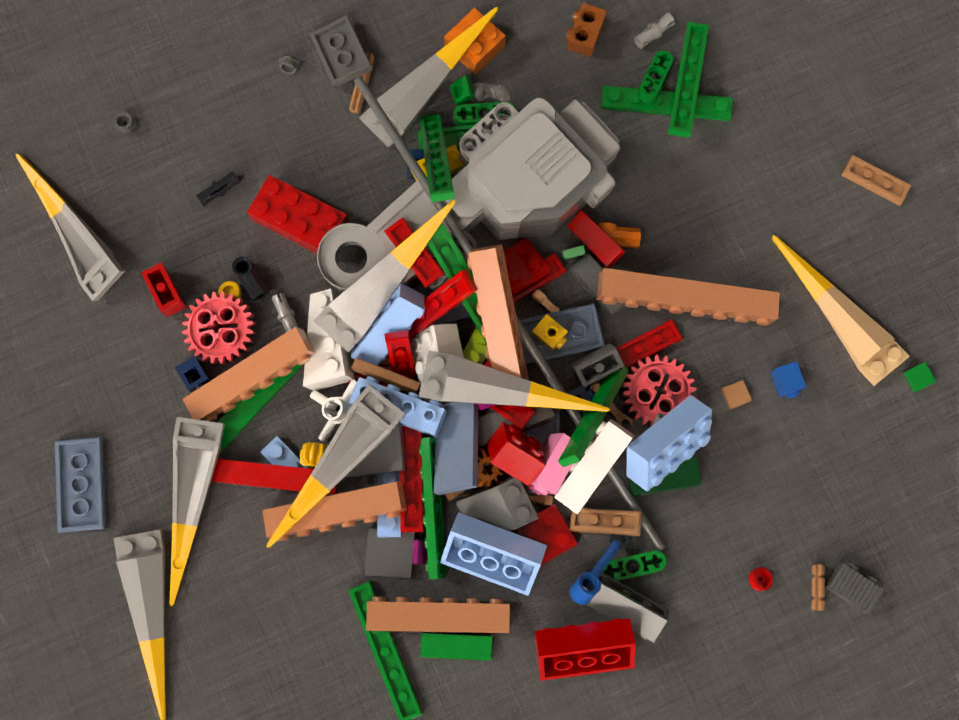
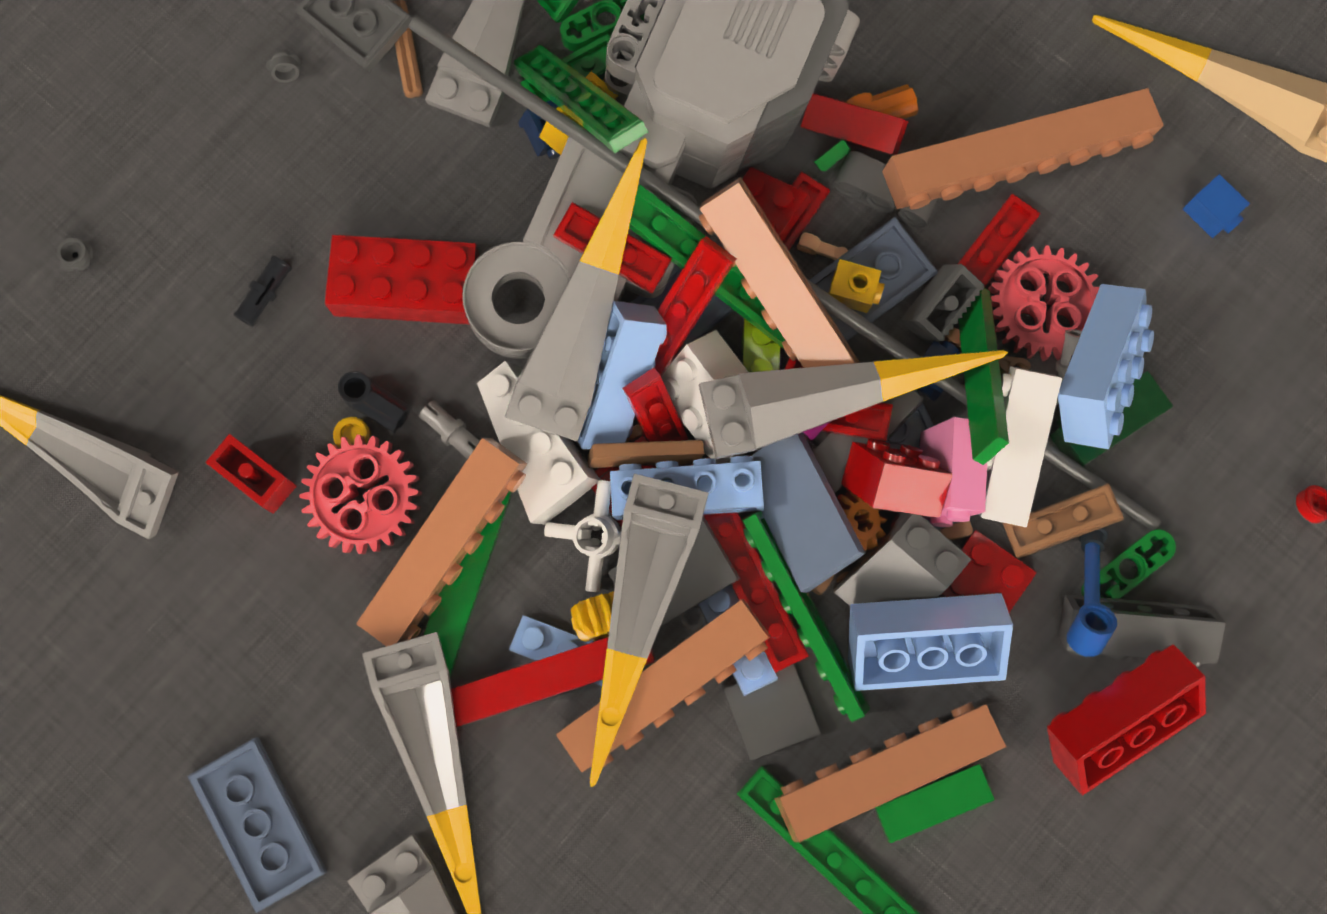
camera: 25 degrees left, 0 degrees up
(187, 372) = (344, 577): dark blue brick -> none
(420, 553) = (817, 690): magenta slope -> none
(736, 394) = (1153, 260): medium nougat tile -> none

